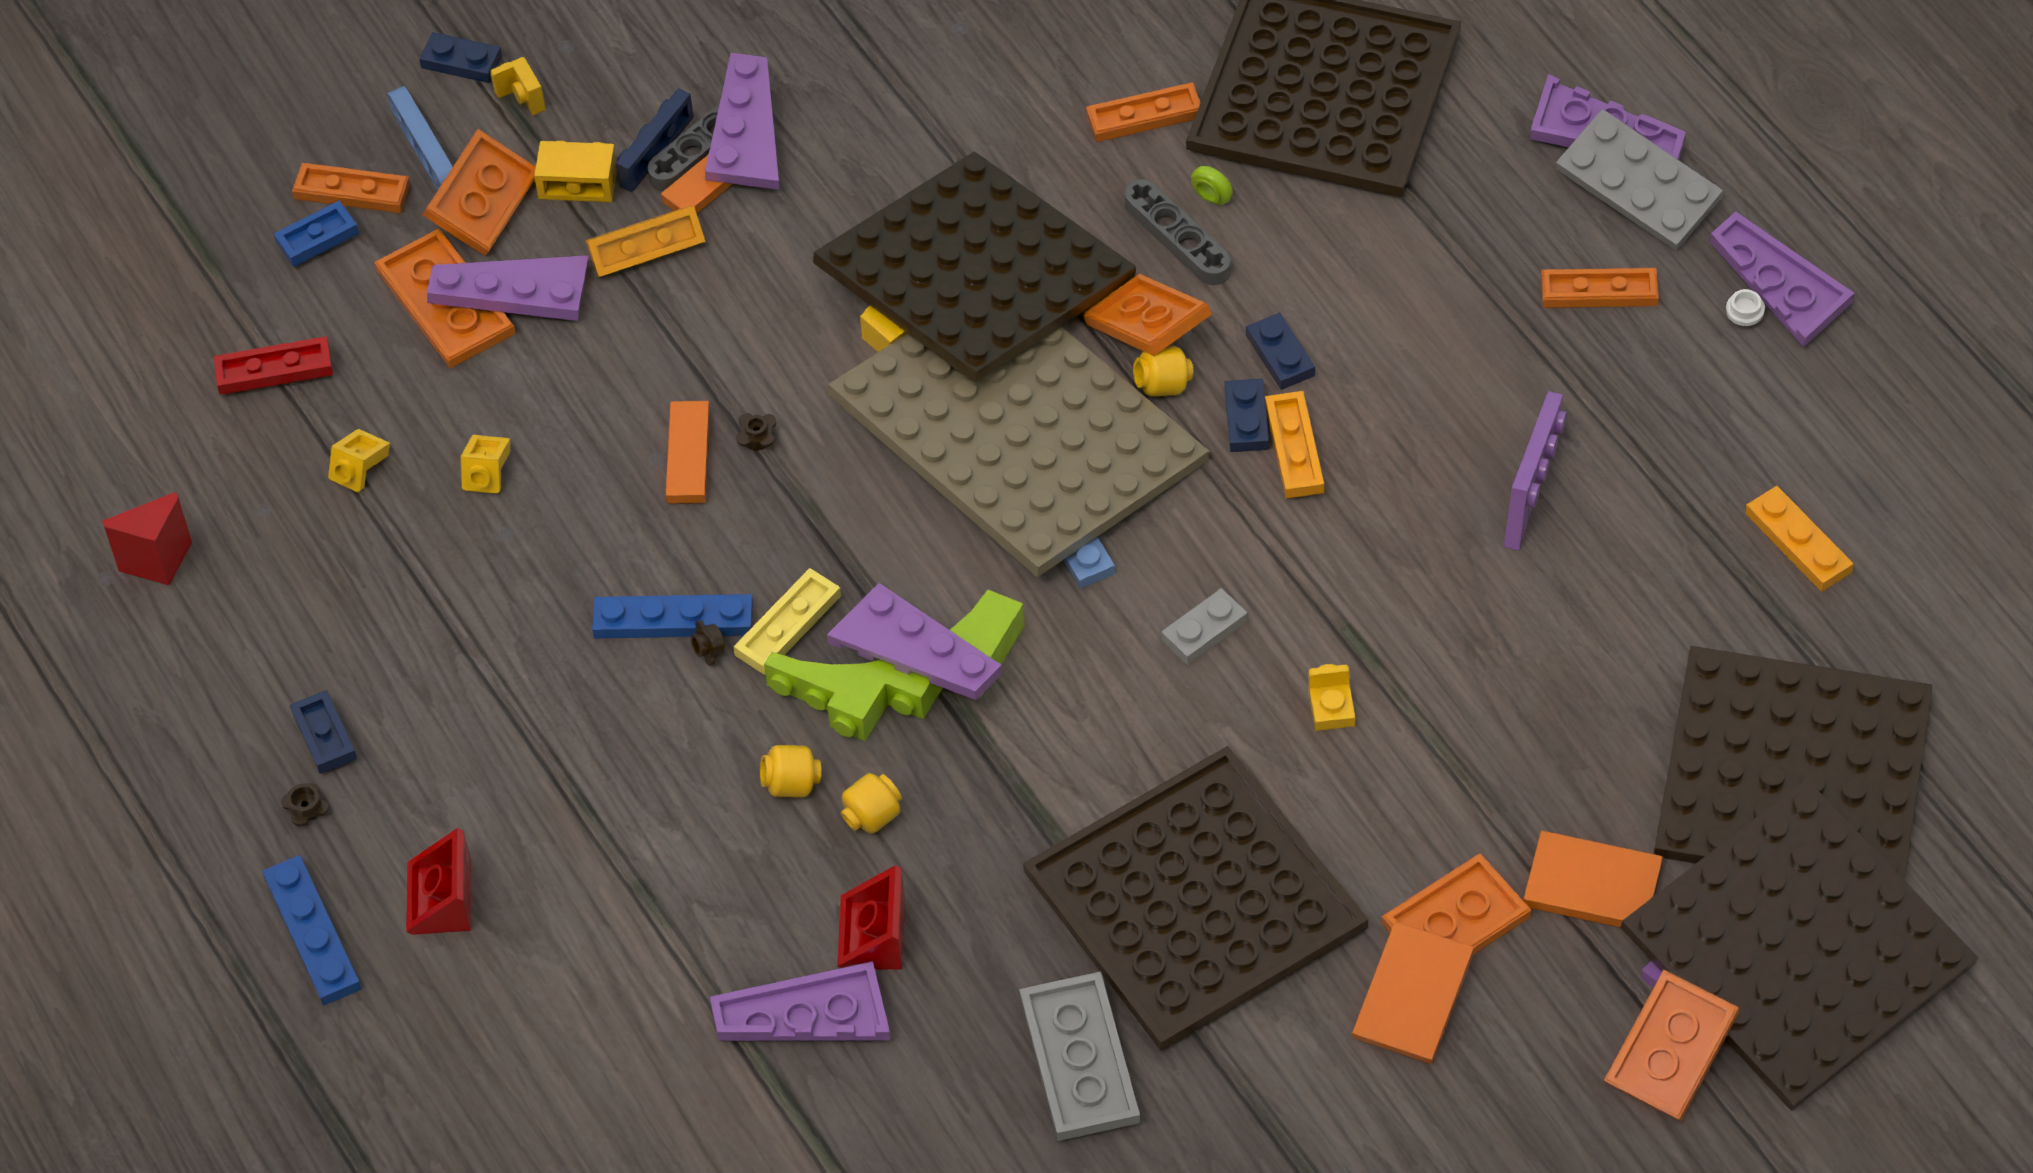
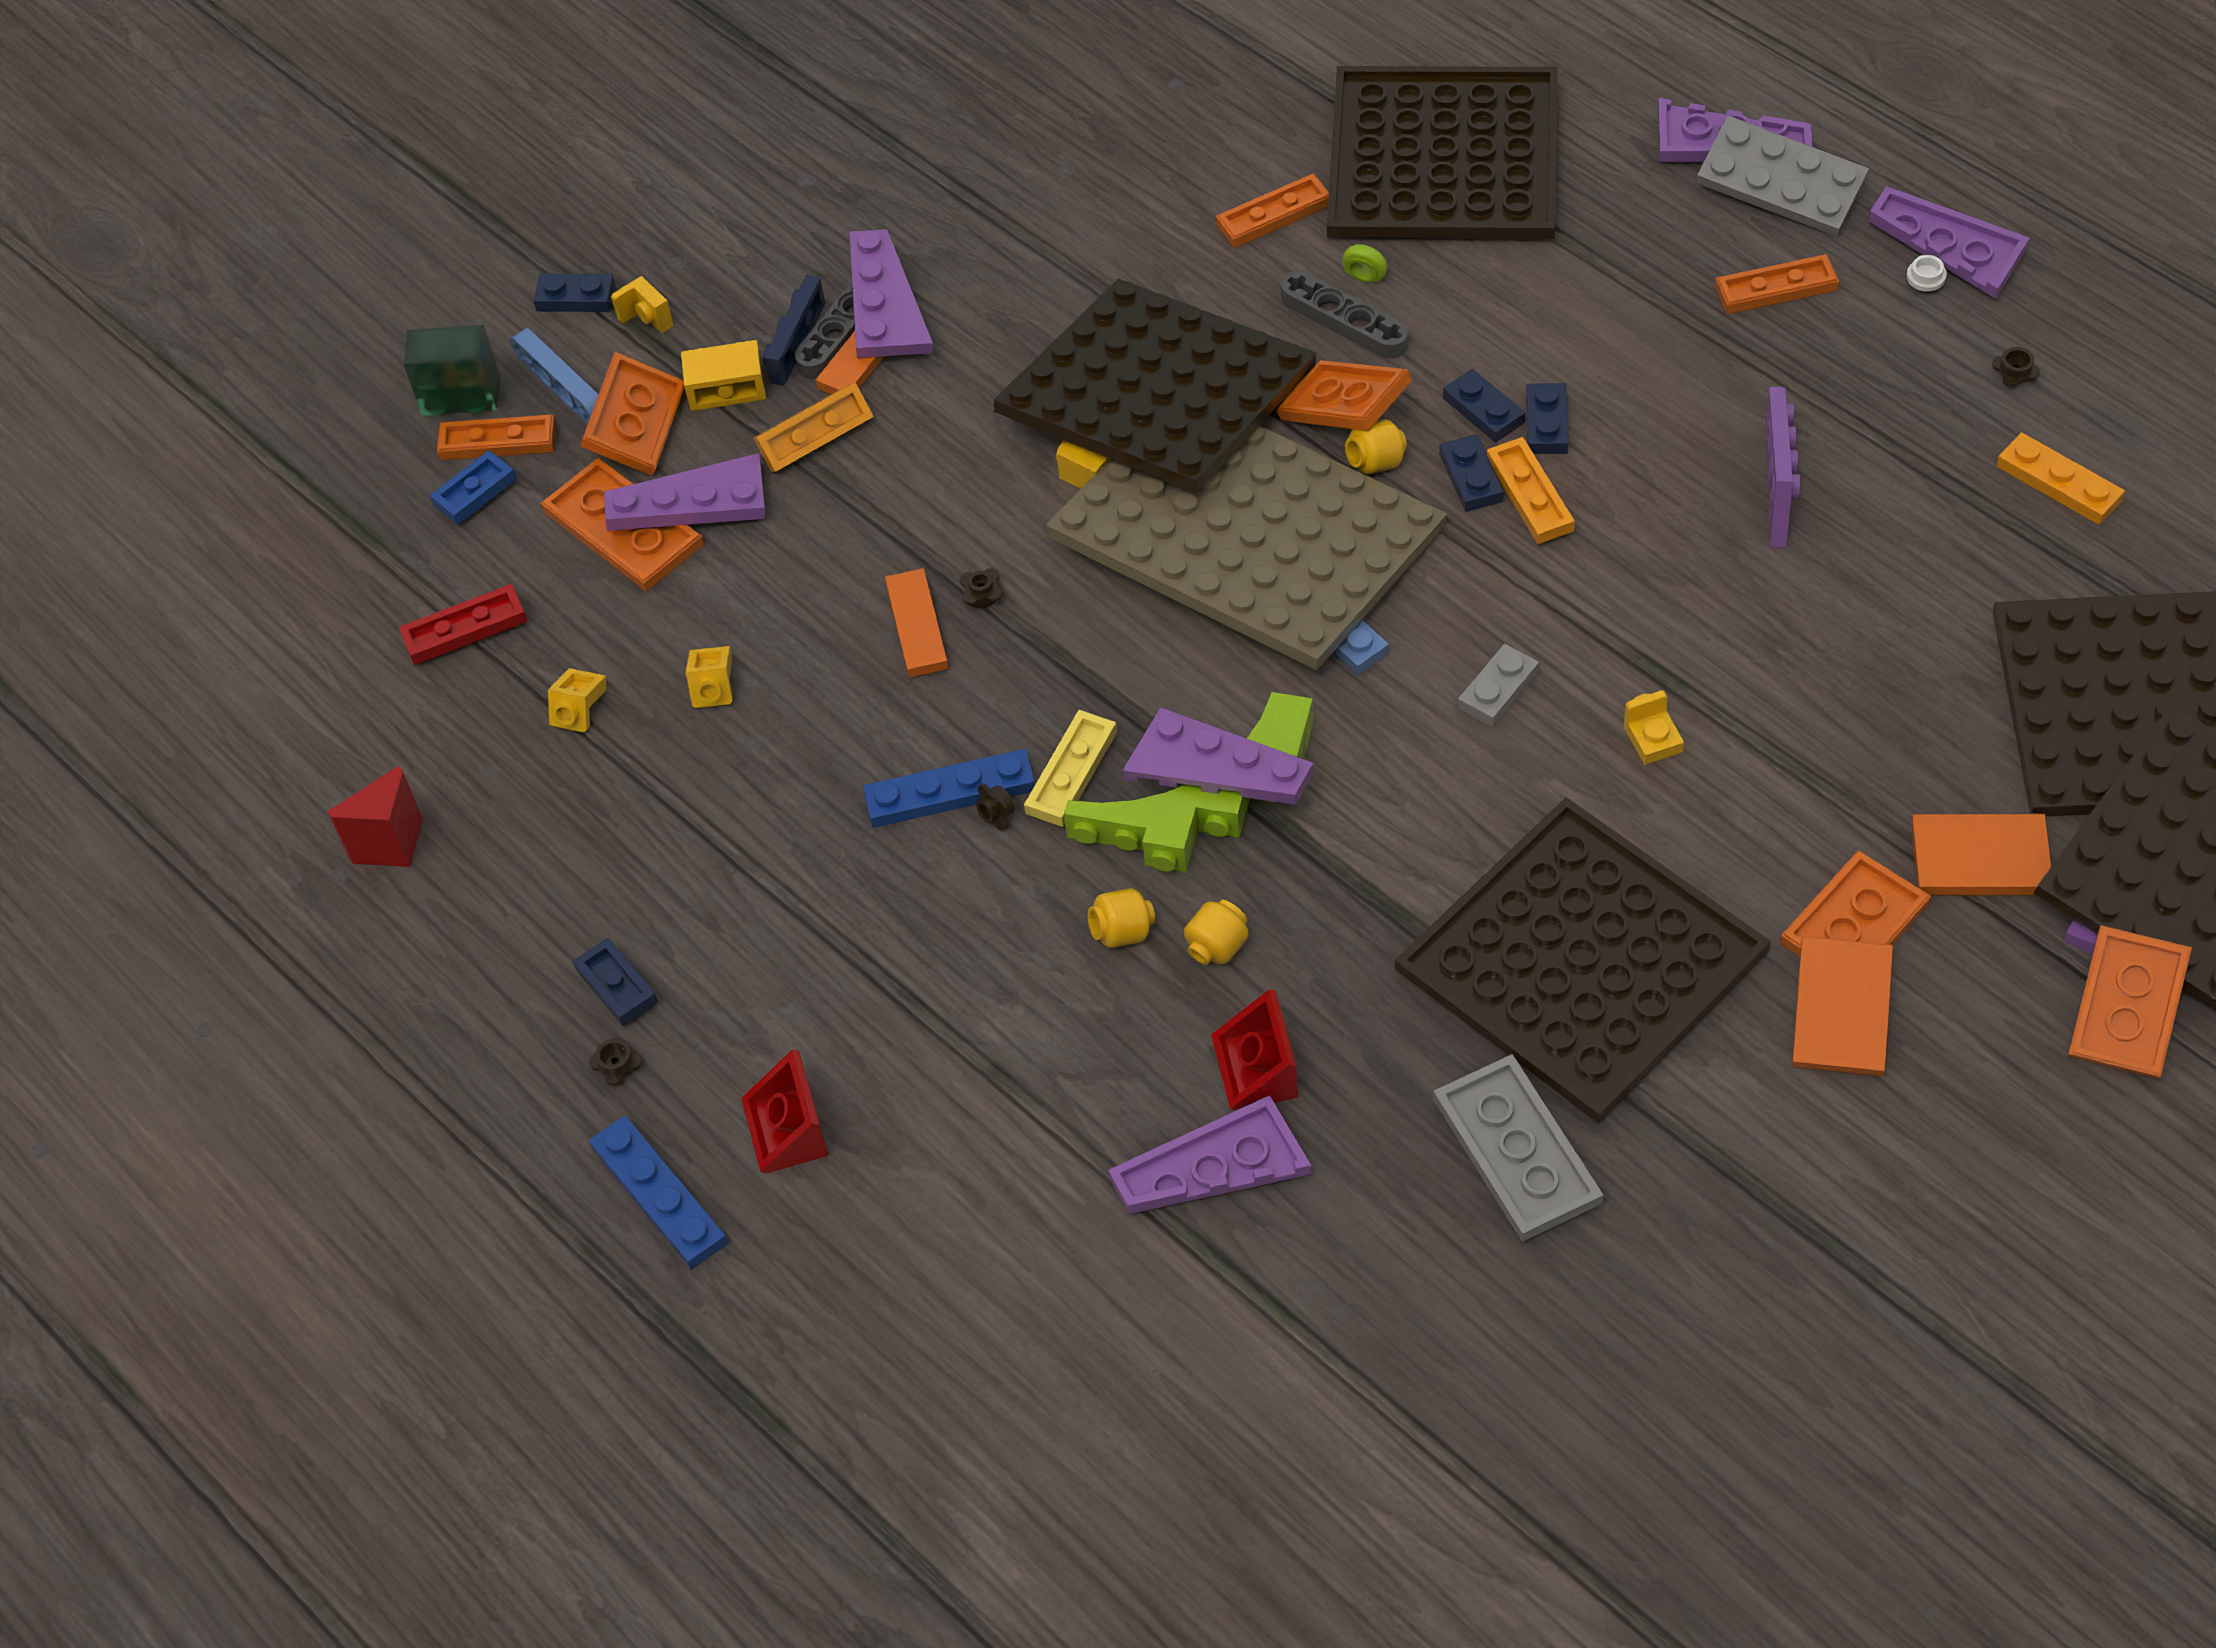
camera: 10 degrees left, 0 degrees up
(323, 115) = (452, 370): none -> clear green brick
(1335, 376) = (1547, 418): none -> dark blue plate
(1799, 411) = (2016, 366): none -> dark brown plate

